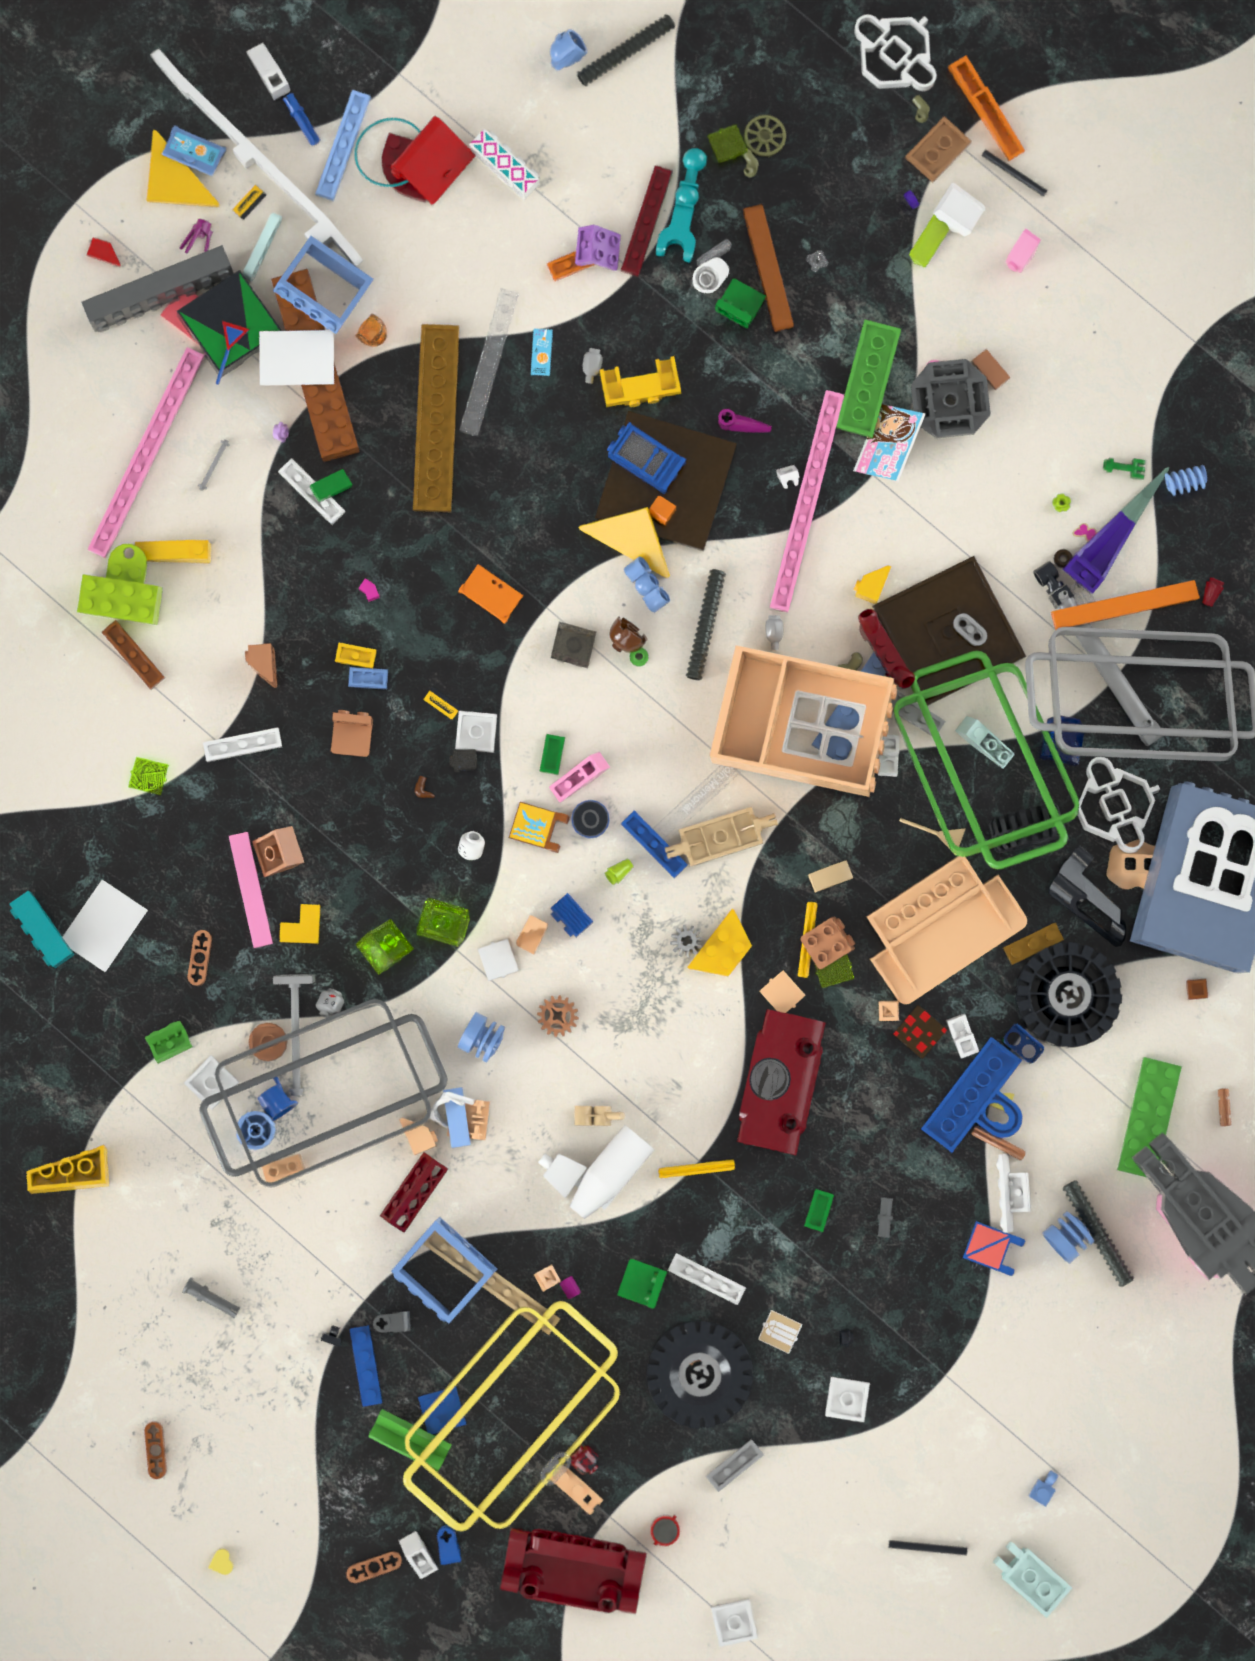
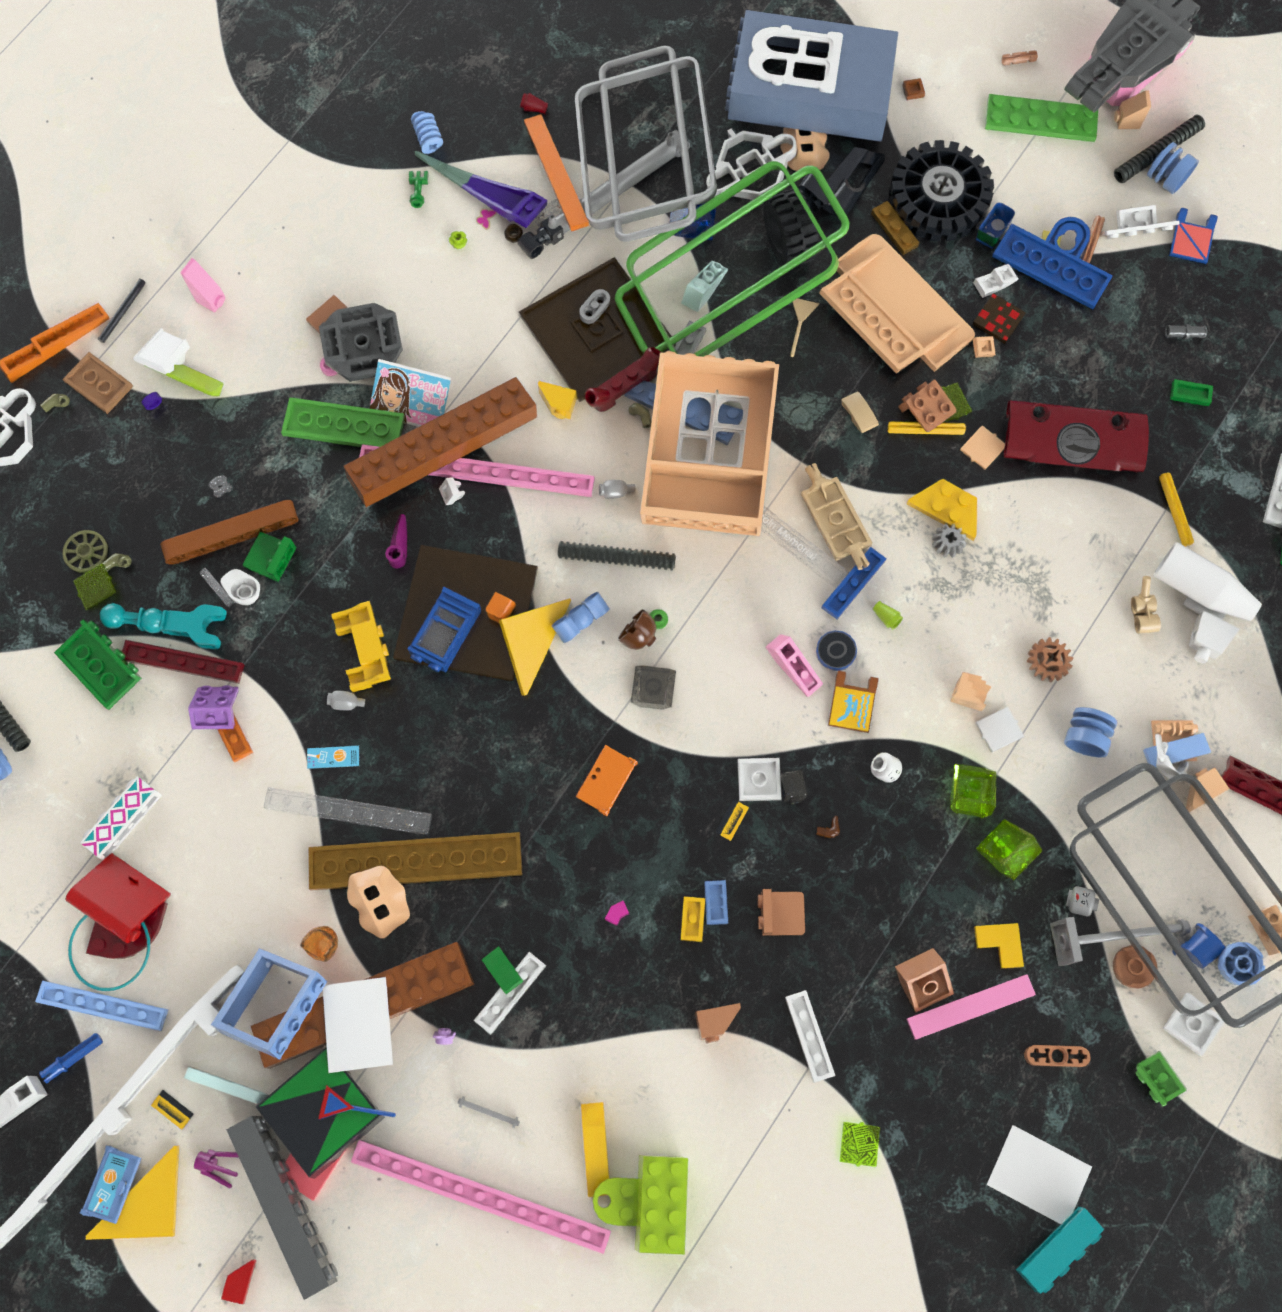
camera: 95 degrees left, 10 degrees down
(133, 654) = (721, 1181): dark orange tile -> none
(406, 394) = (391, 894): none -> light nougat piece
(552, 754) = (773, 697): green tile -> none
(571, 915) = (942, 656): blue brick -> none
(650, 146) = (98, 664): none -> green bracket
(835, 468) = (440, 441): none -> dark orange brick
(1141, 1209) = (1133, 111): none -> light nougat slope

